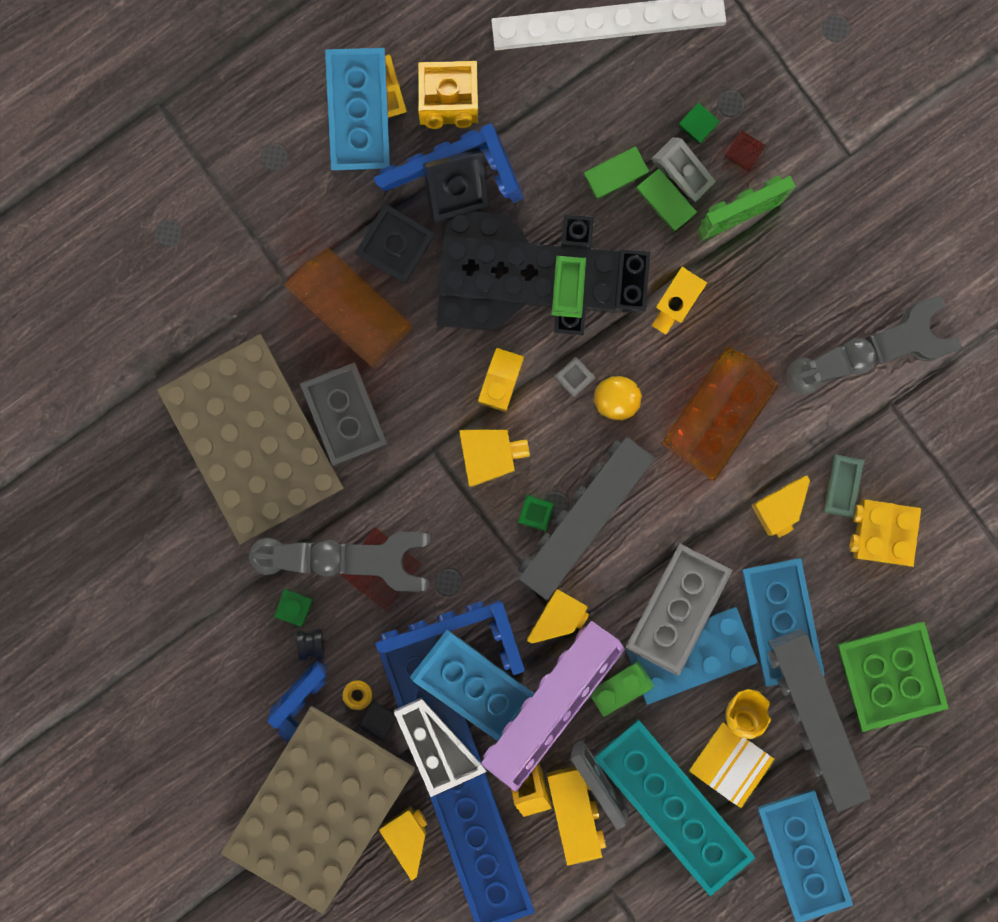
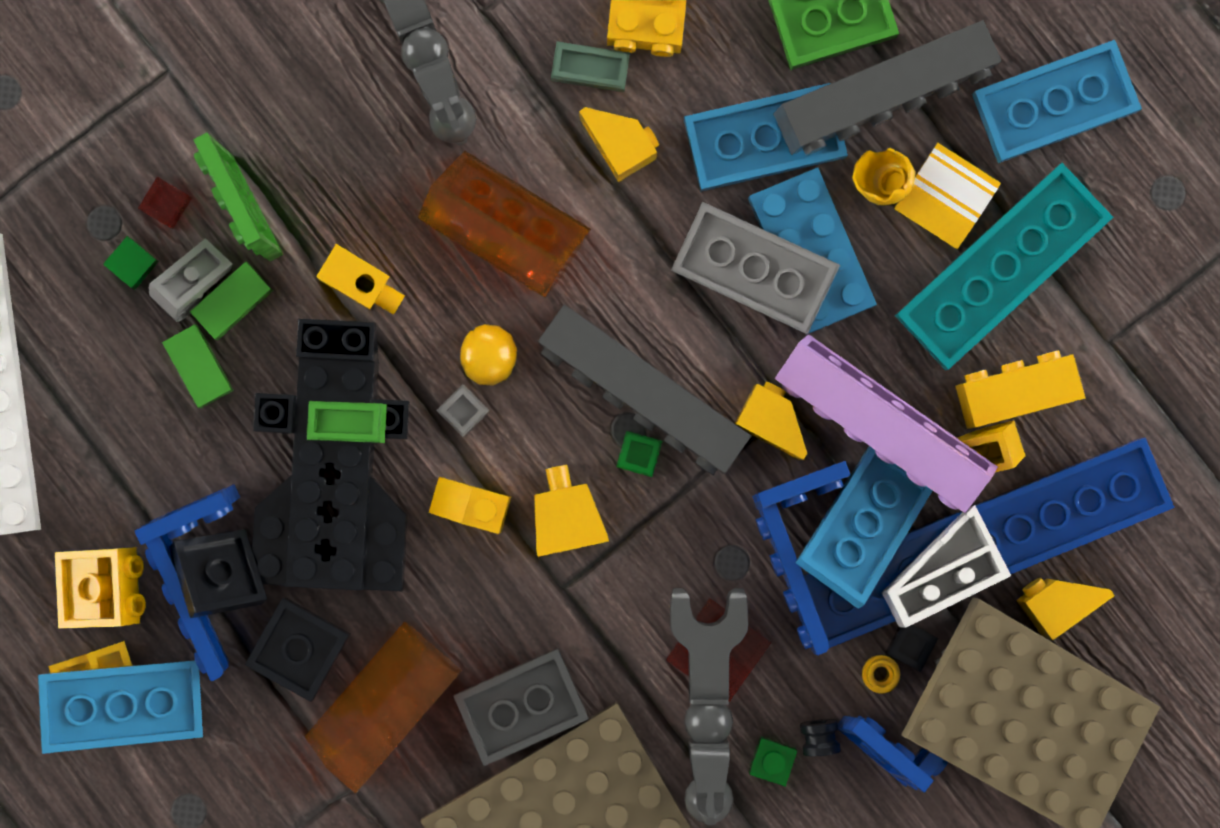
camera: 100 degrees left, 0 degrees up
(599, 784) = (981, 361): dark grey tile -> none
(621, 688) = (858, 336): bright green plate -> none

